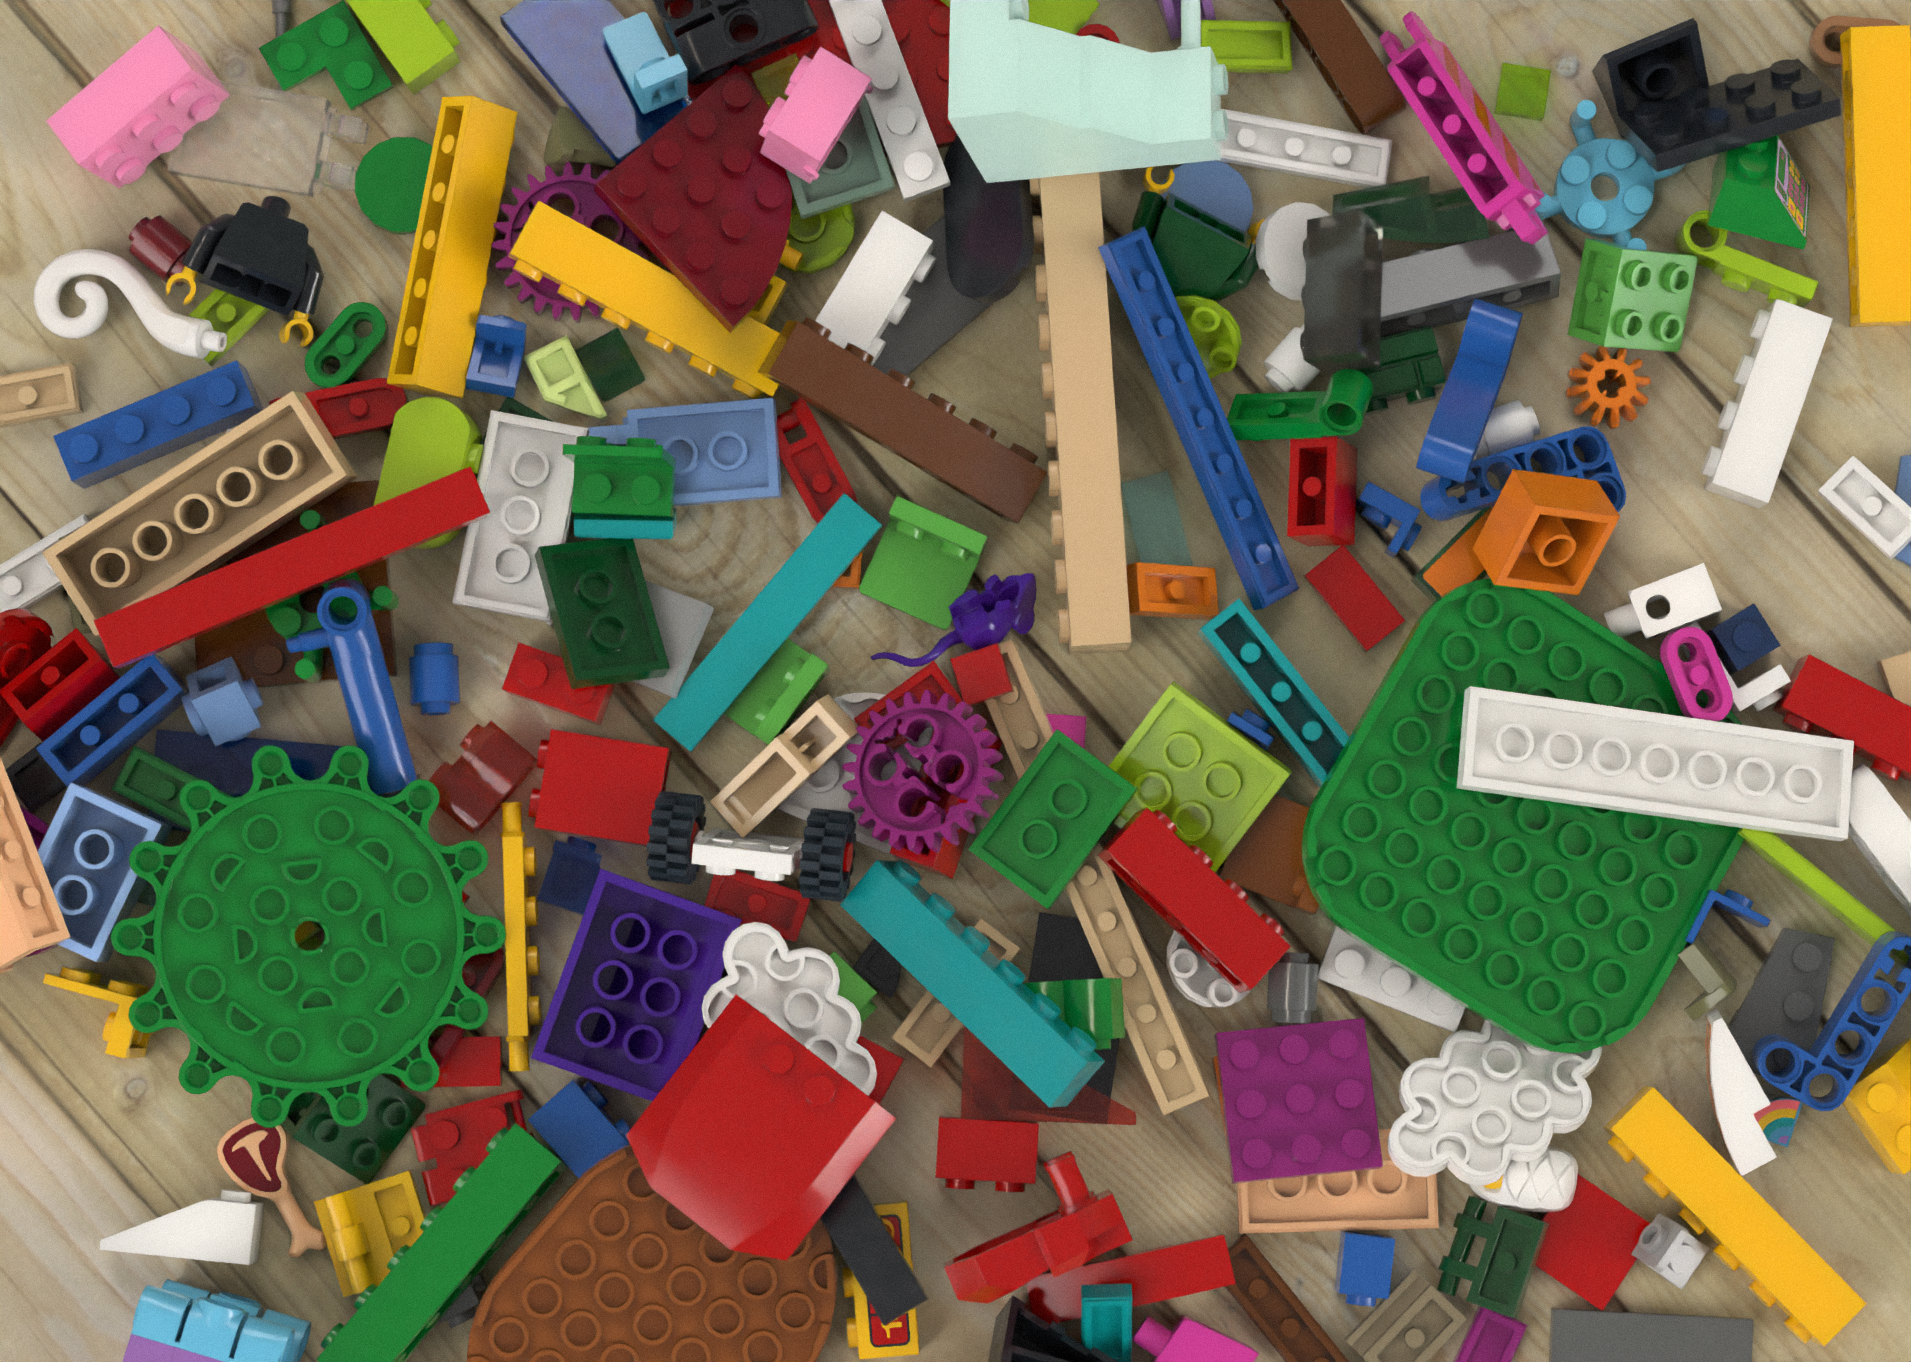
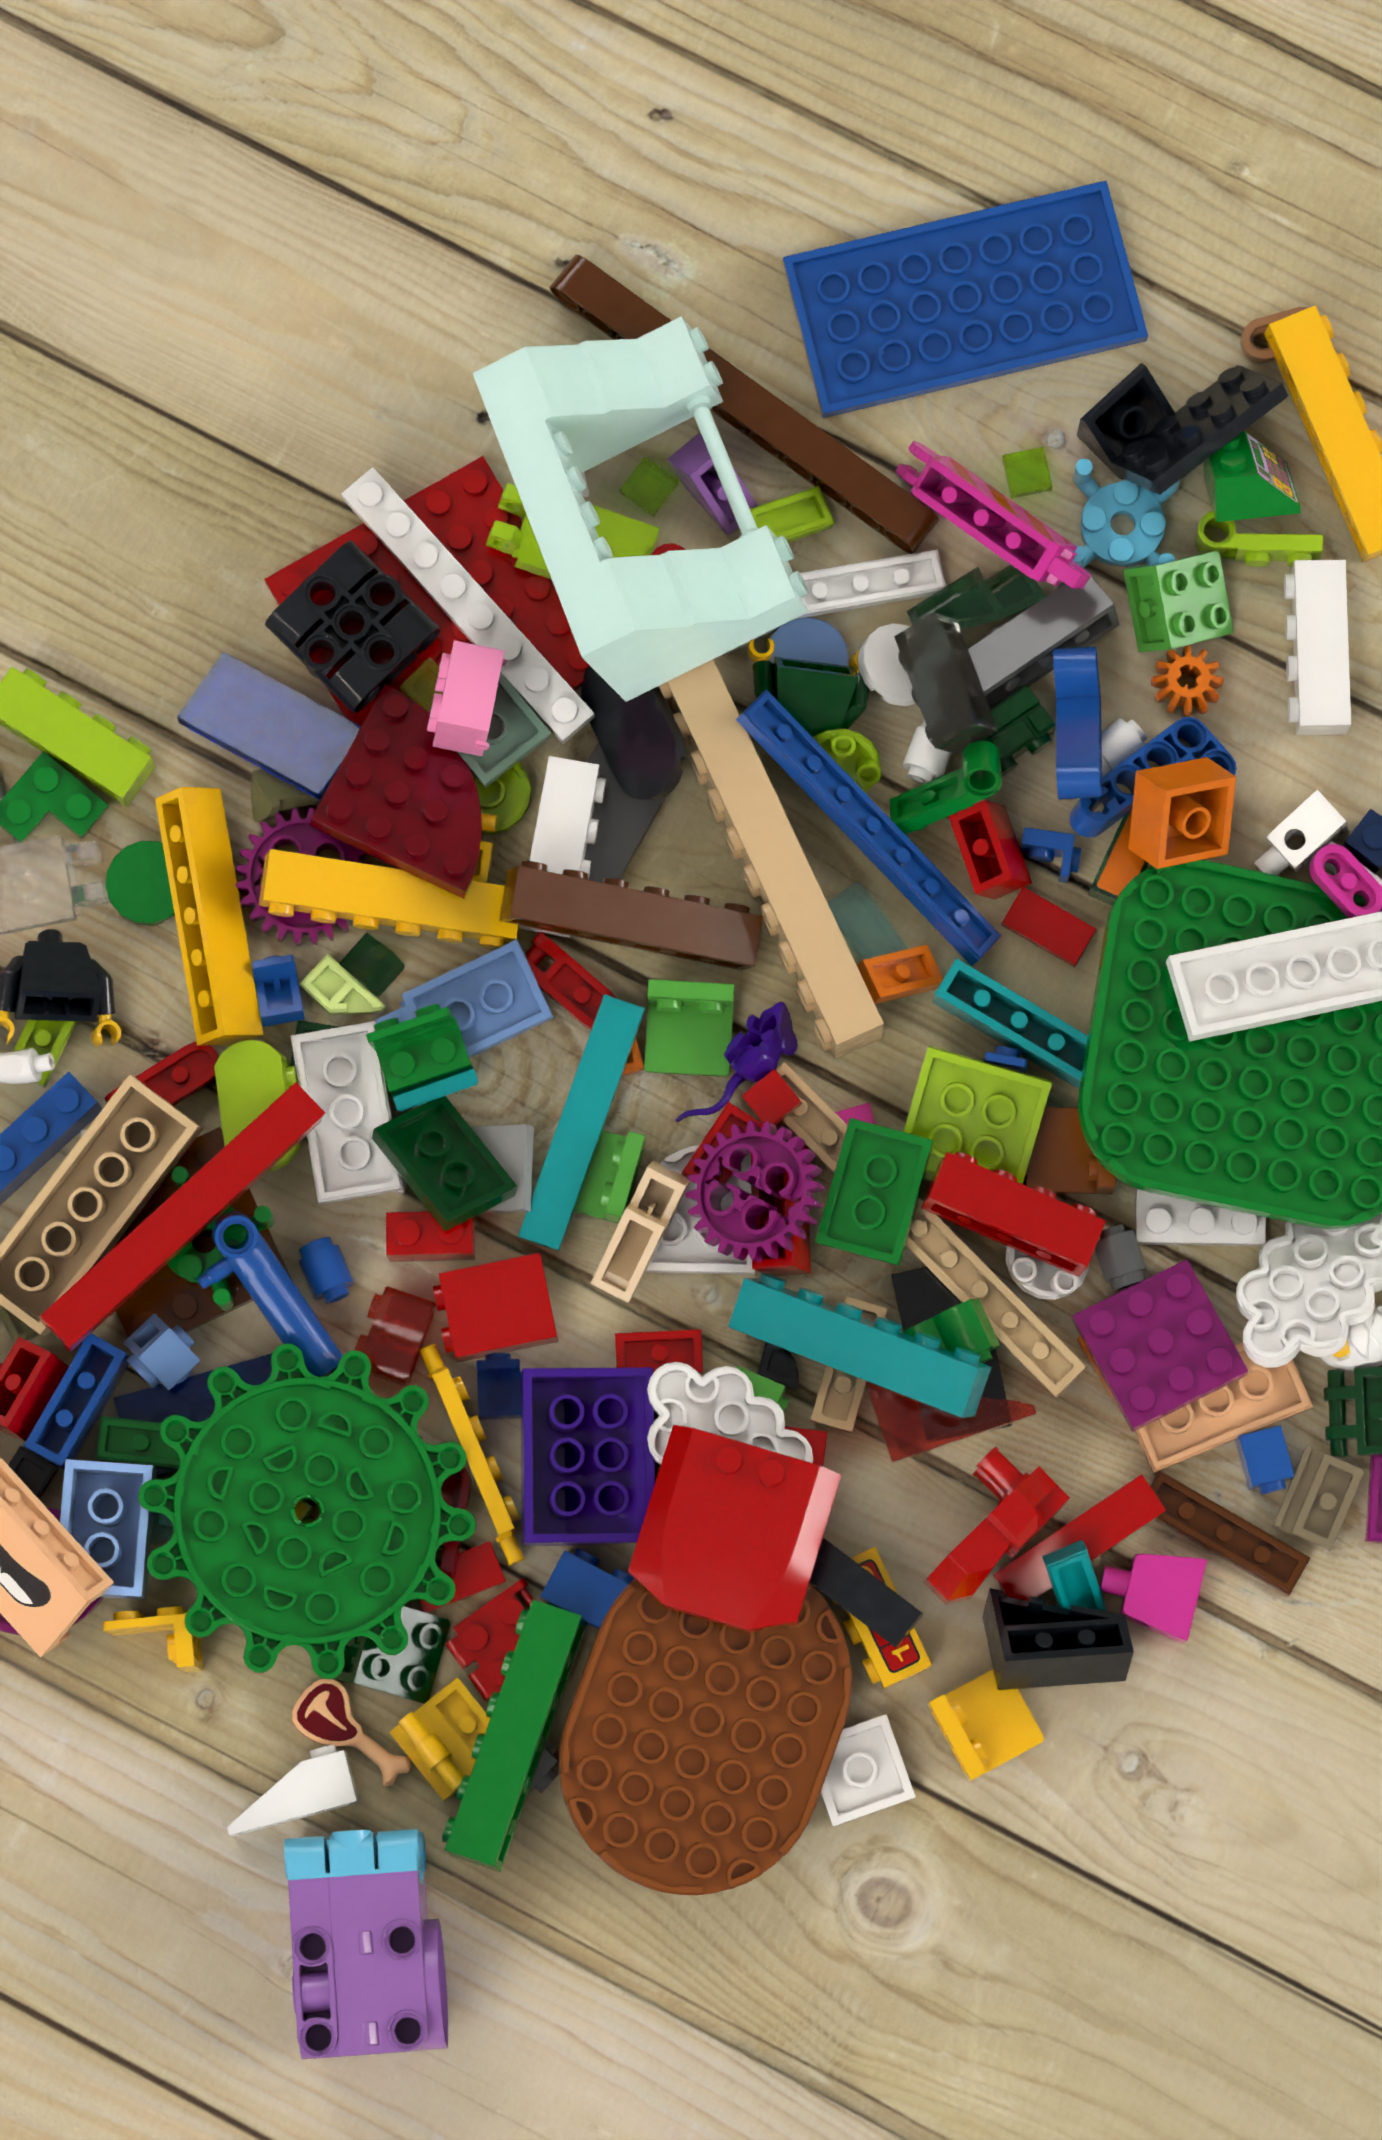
camera: 20 degrees left, 5 degrees down
(342, 343) = (150, 1030): green plate -> none
(645, 63) = (311, 710): medium azure bracket -> none
(681, 846) = (579, 1325): black plate -> none
(987, 1152) = (923, 1483): red brick -> none

